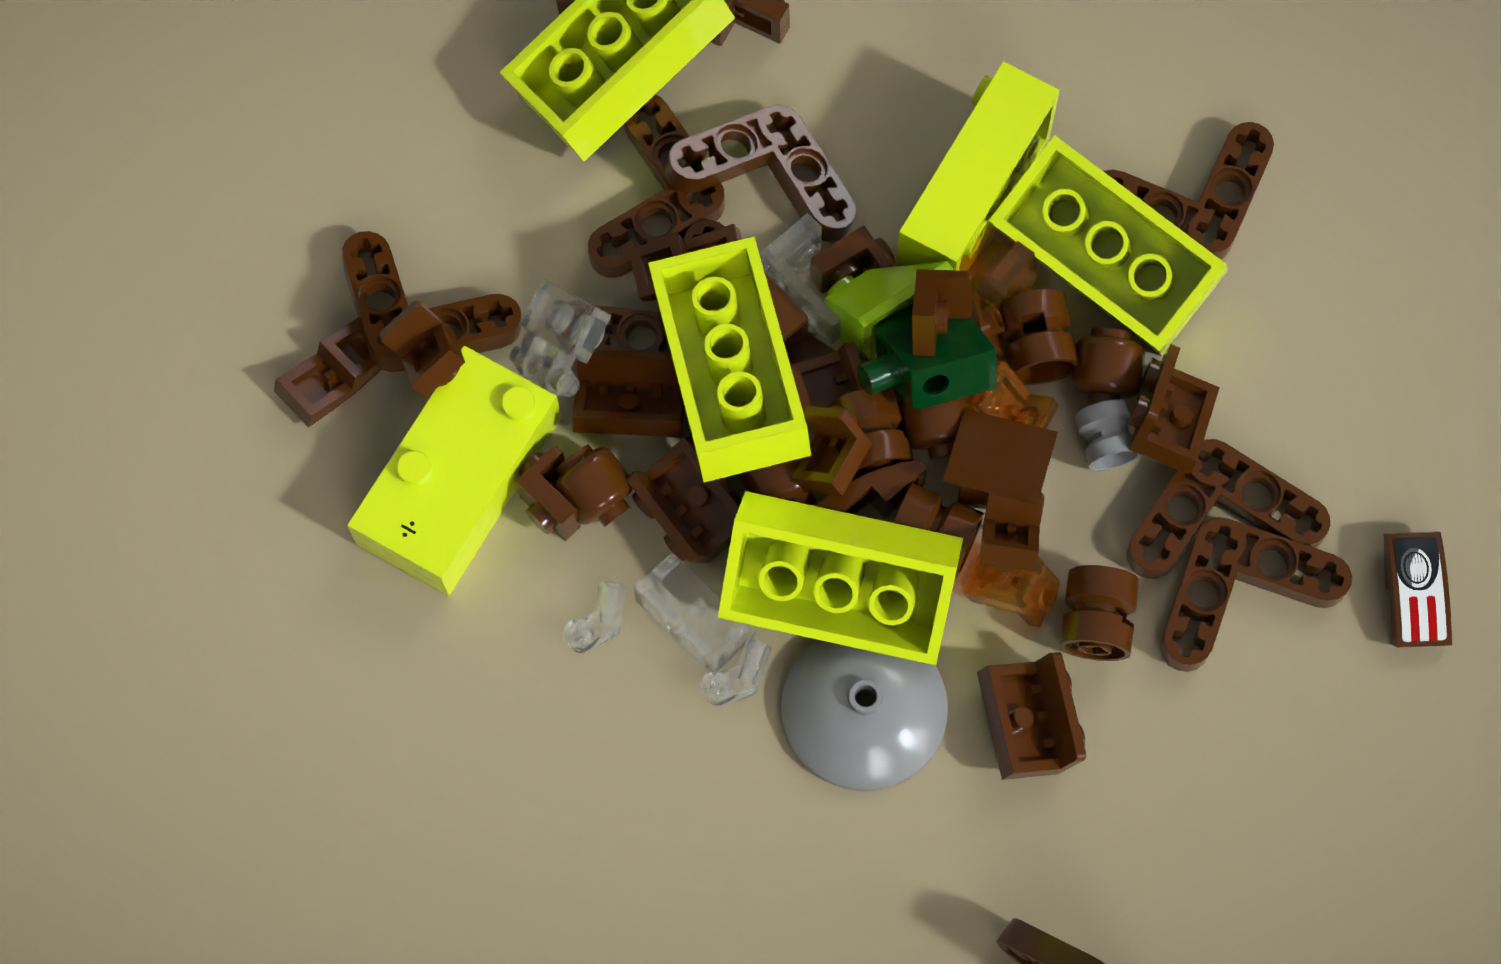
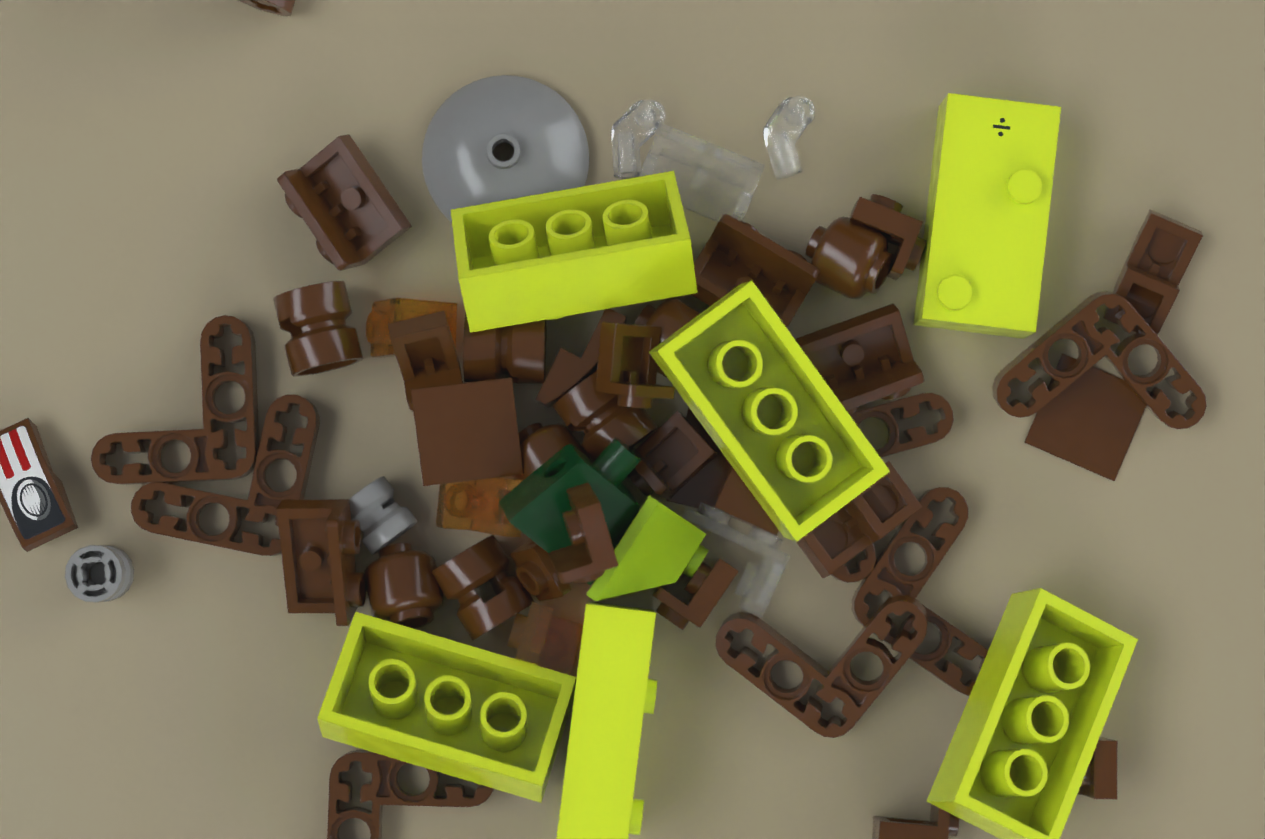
camera: 150 degrees right, 15 degrees up
(426, 347) = (1066, 306): reddish brown bracket -> none
(449, 271) = (1089, 421): none -> reddish brown sticker
(559, 332) = (946, 383): clear plate -> none
(1369, 493) = (109, 572): none -> light grey wheel

